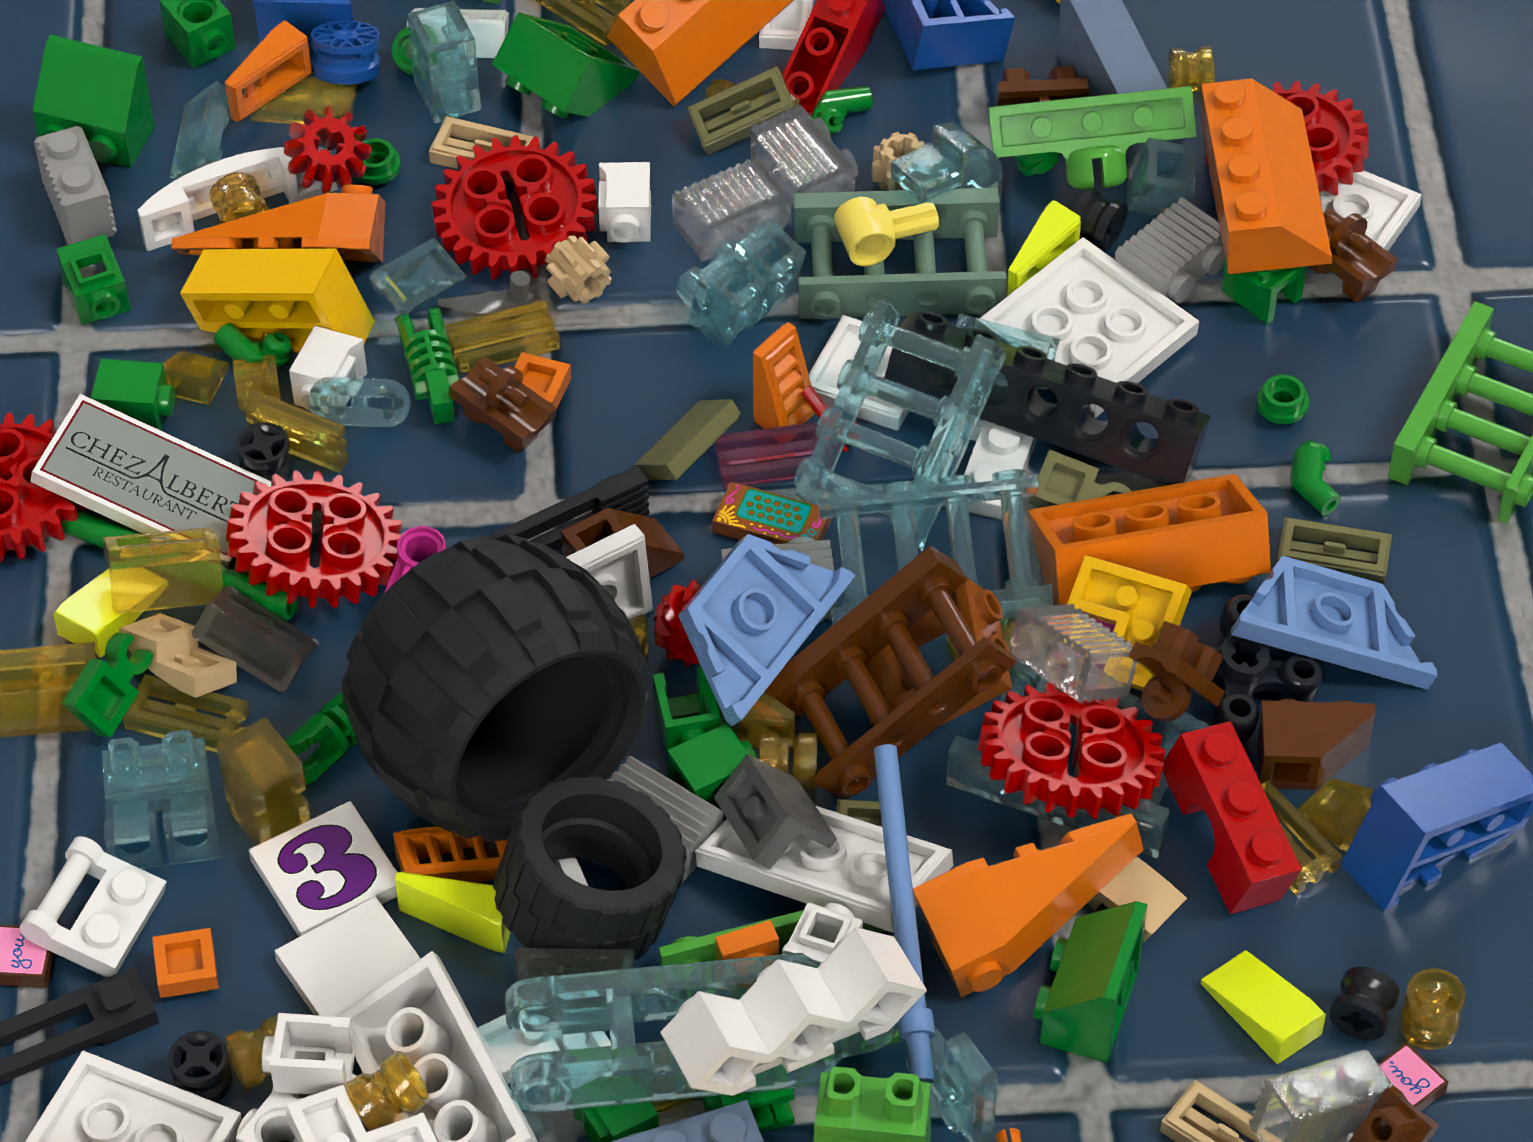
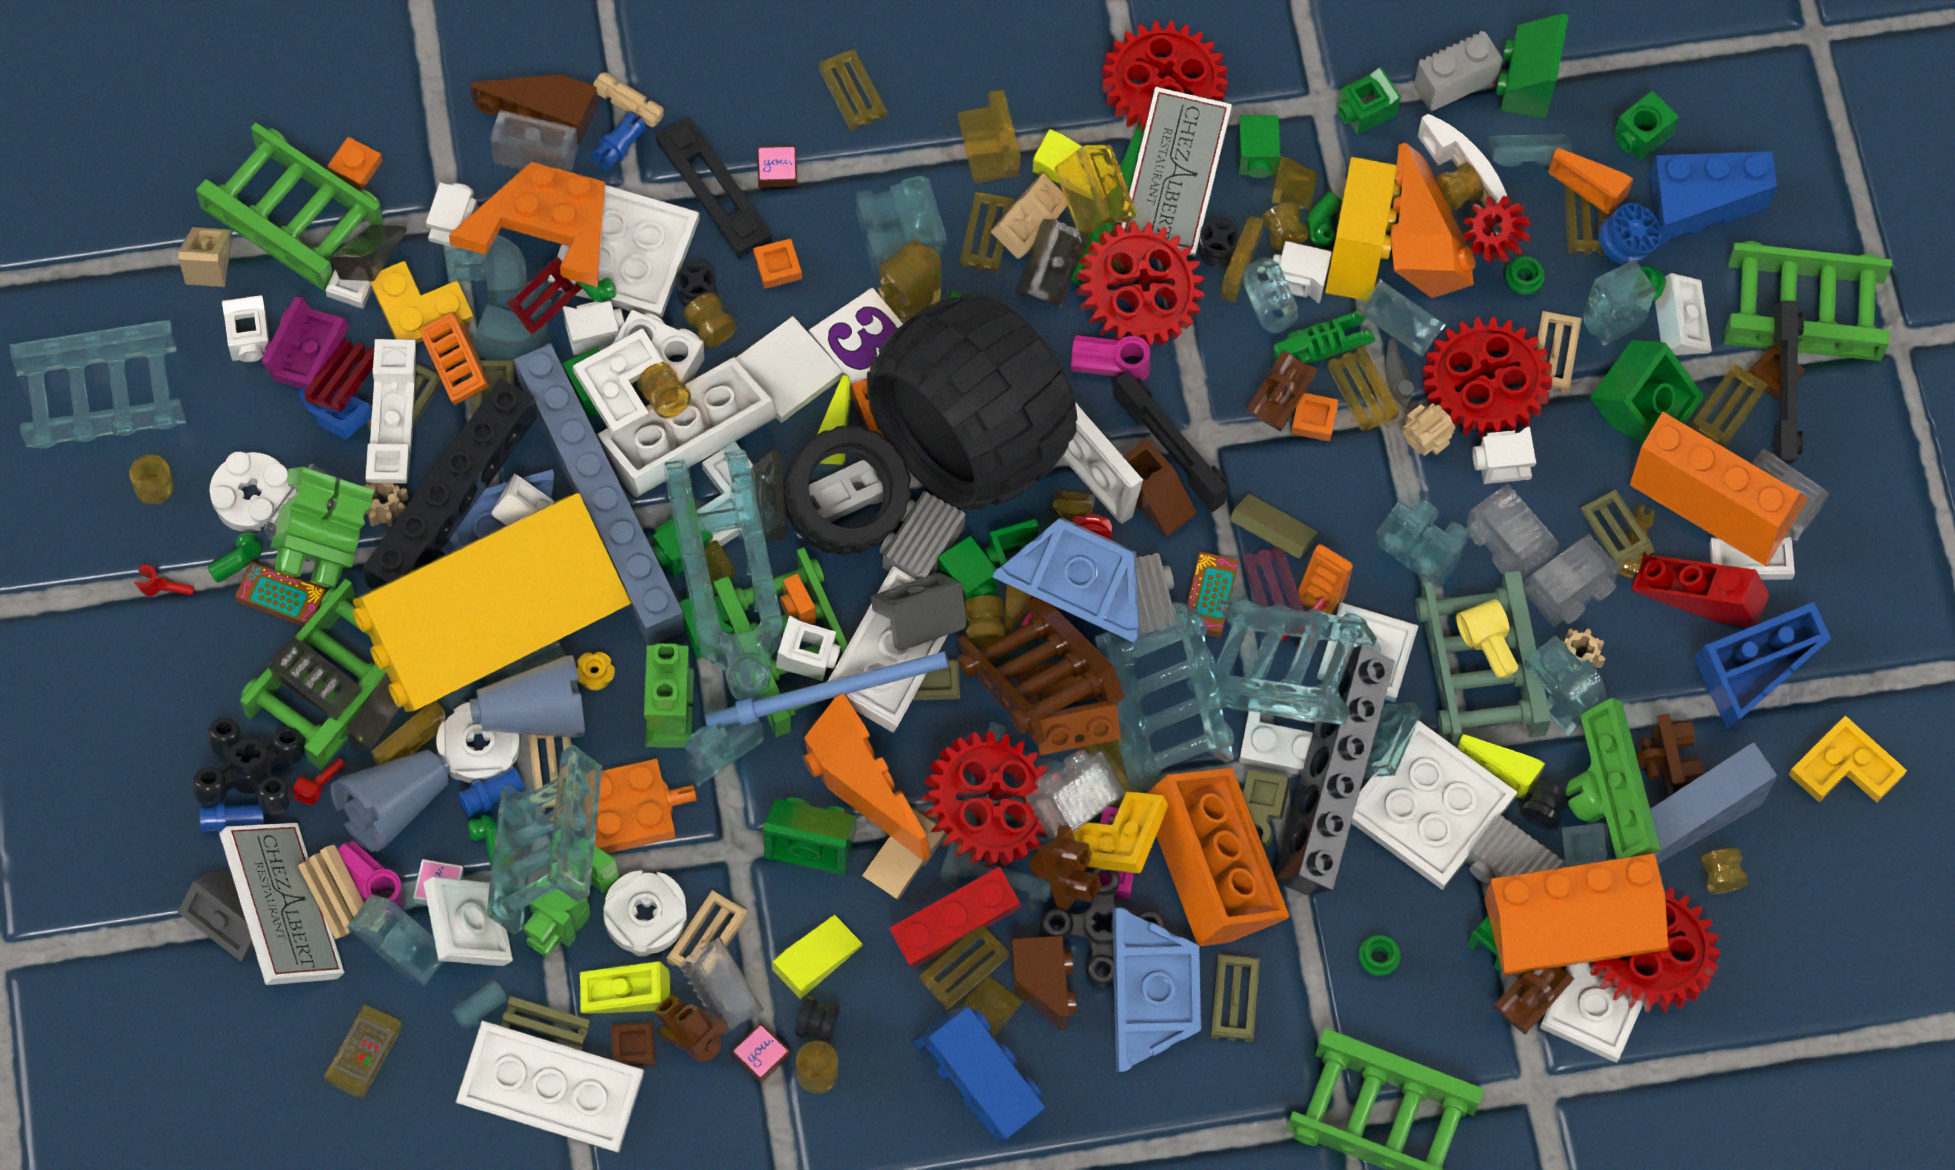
camera: 80 degrees right, 15 degrees up
(103, 687) = (986, 175): green plate -> none
(110, 917) = (808, 212): white plate -> none
(309, 1038) = (684, 322): white window -> none
(793, 1013) = (715, 614): white brick -> none
(837, 103) = (1639, 600): green arm -> none
(1307, 476) = (1305, 975): green arm -> none

